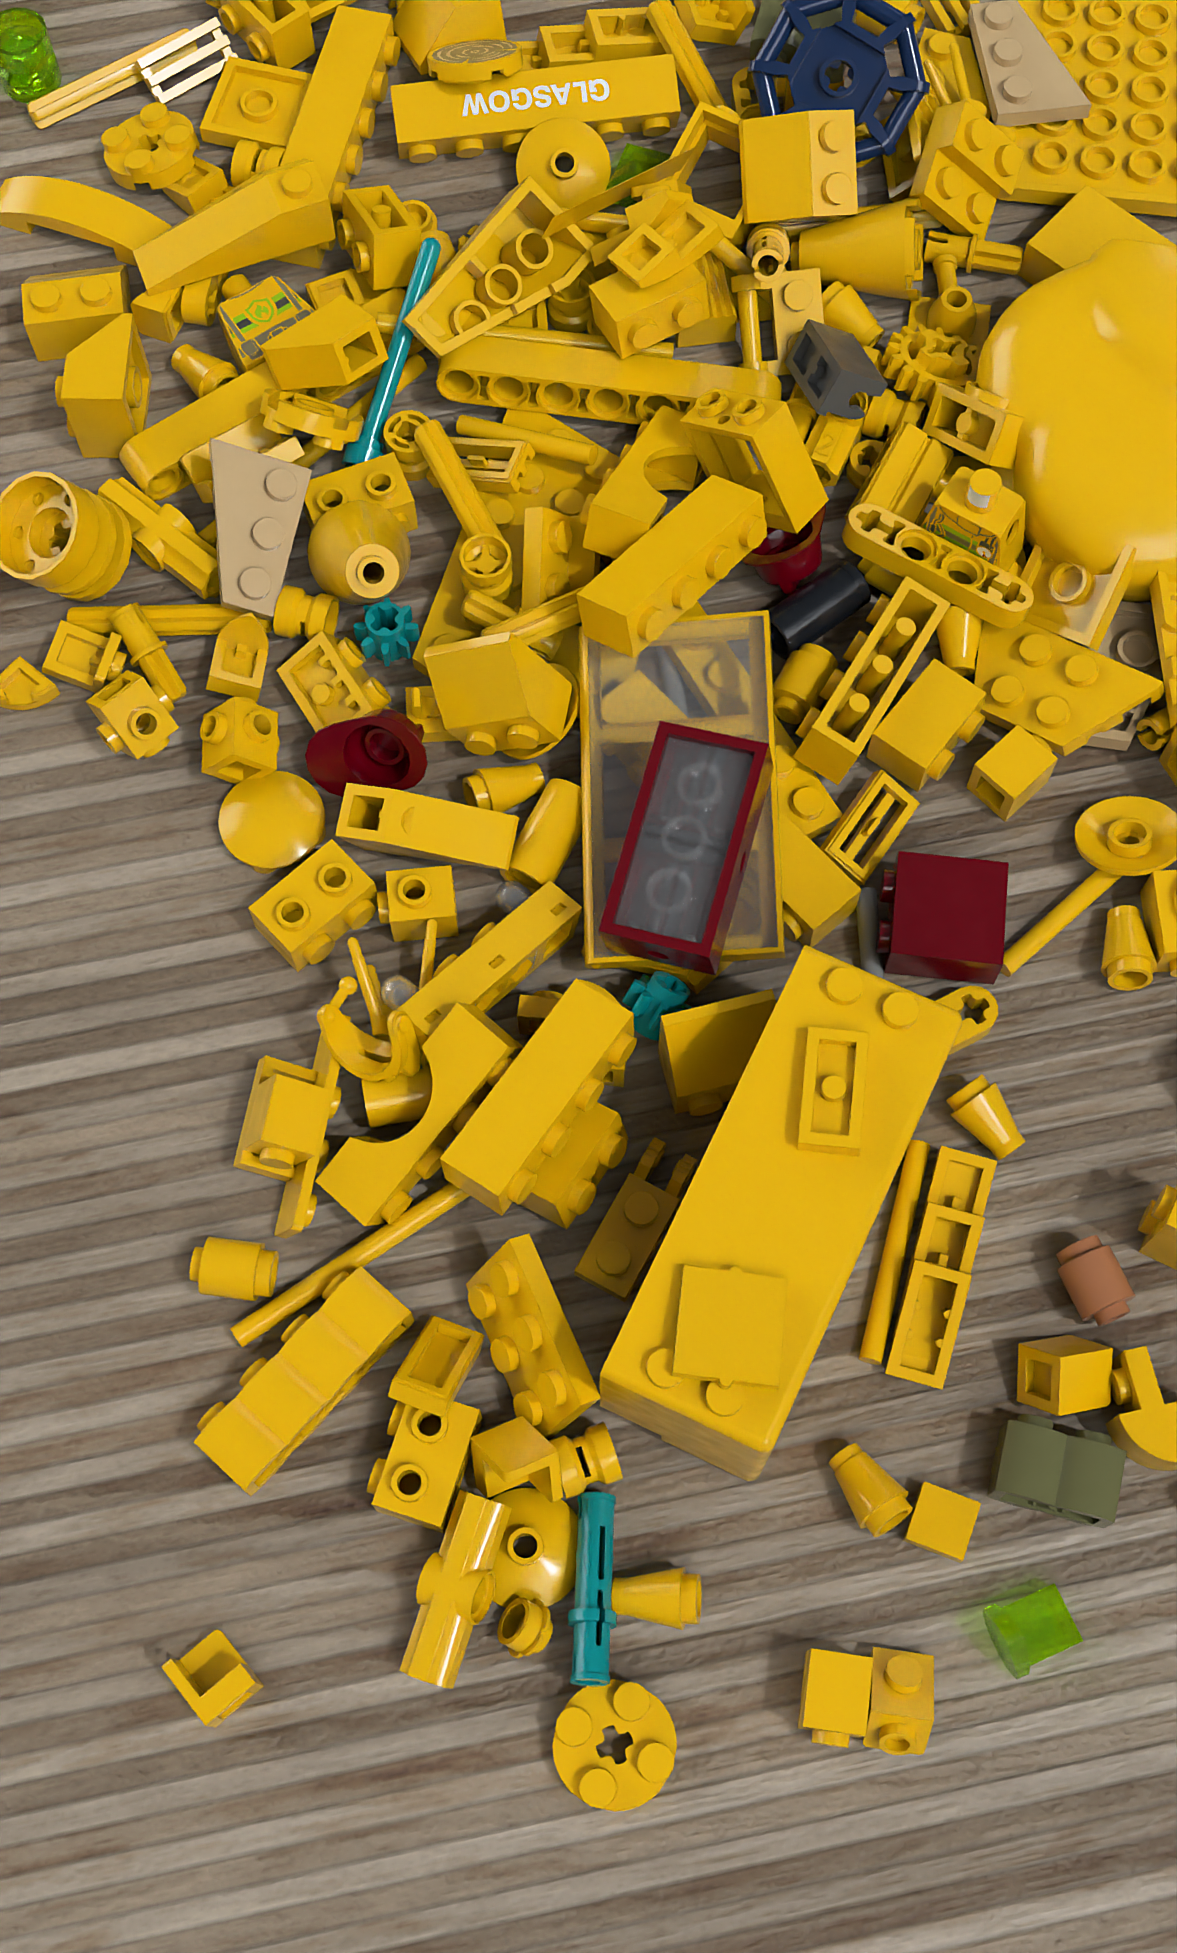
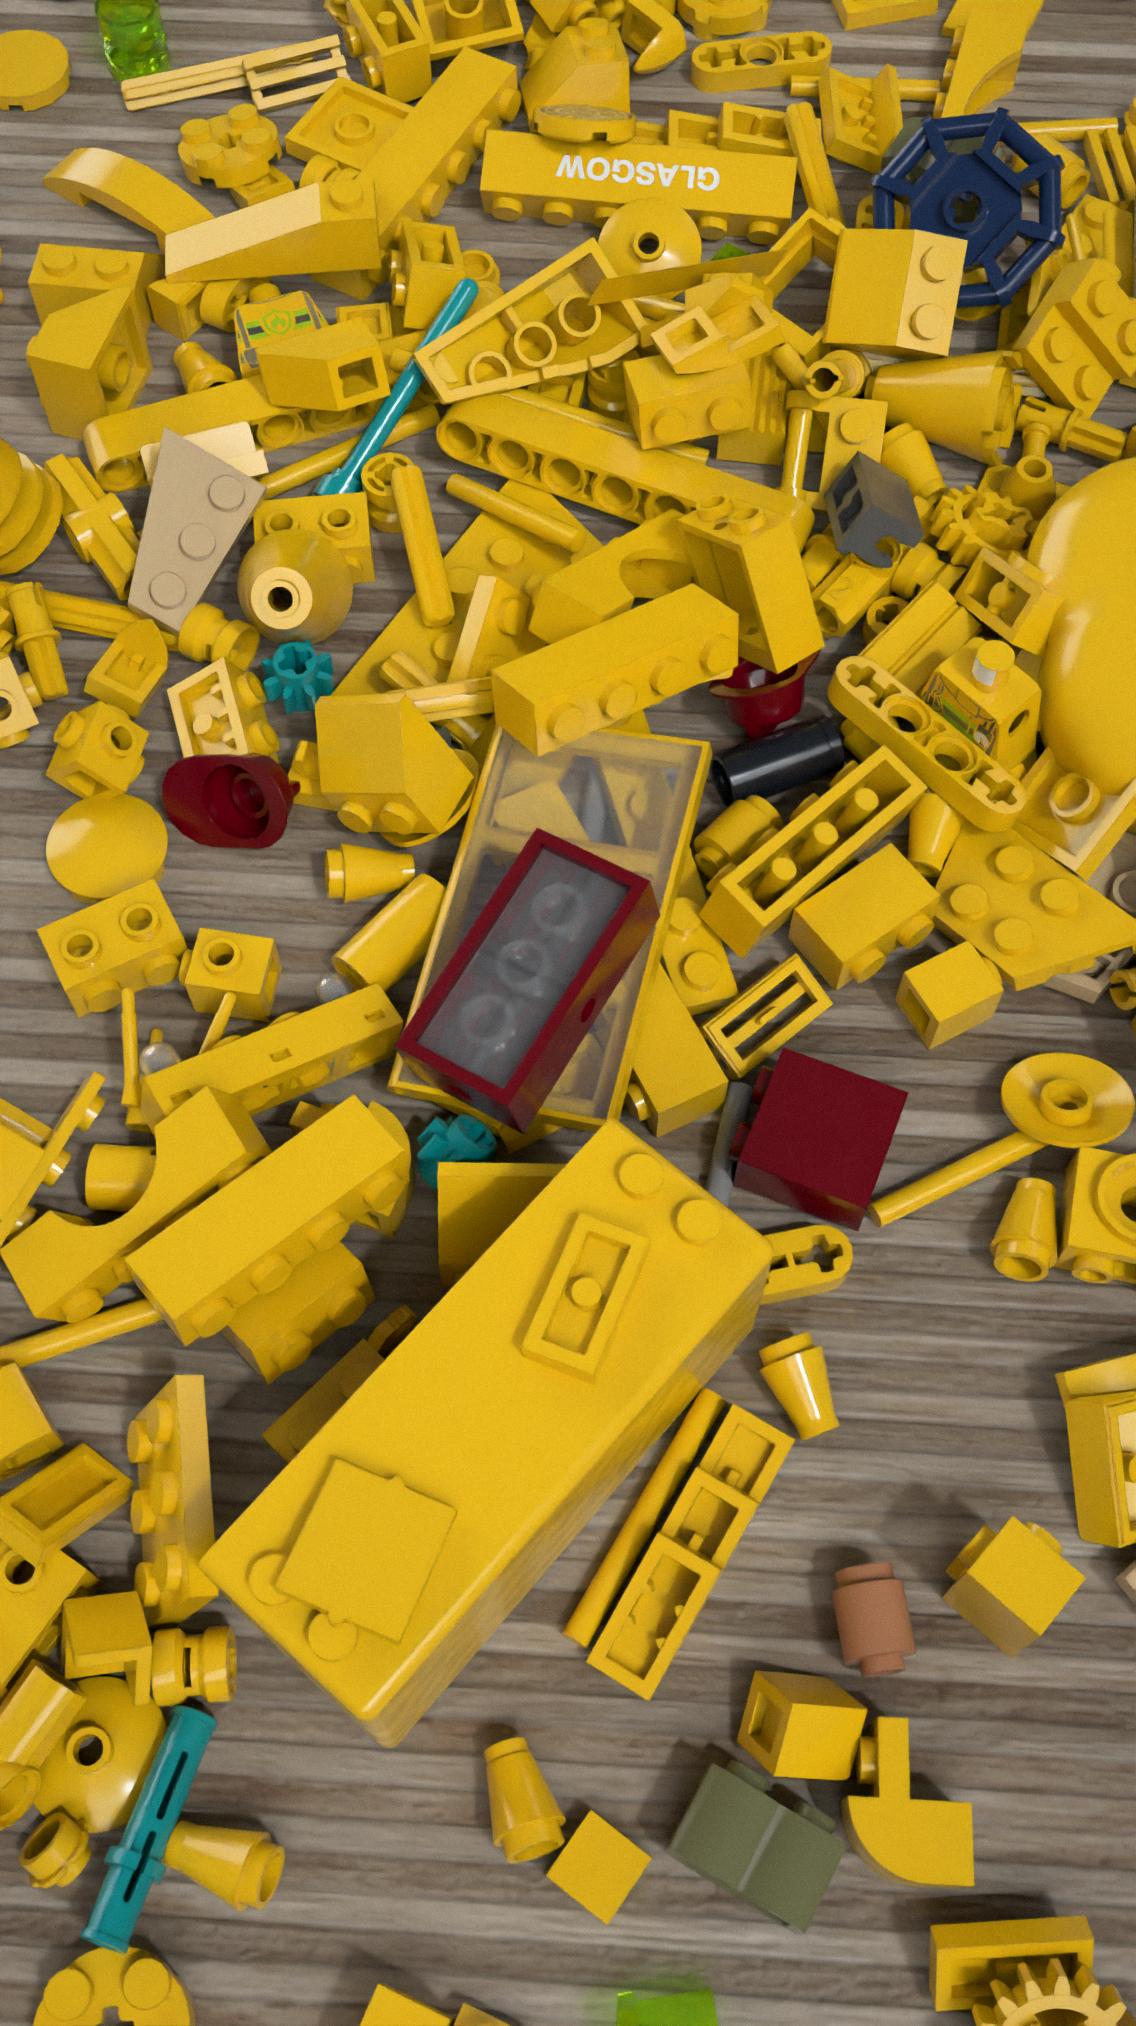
camera: 15 degrees right, 5 degrees down
(311, 415) = (300, 442): yellow plate -> none
(363, 1053) = (100, 1119): yellow helmet -> none
(425, 827) = (259, 890): yellow slope -> none
(487, 566) = (423, 629): yellow wheel -> none
(489, 474) = (466, 540): yellow tile -> none

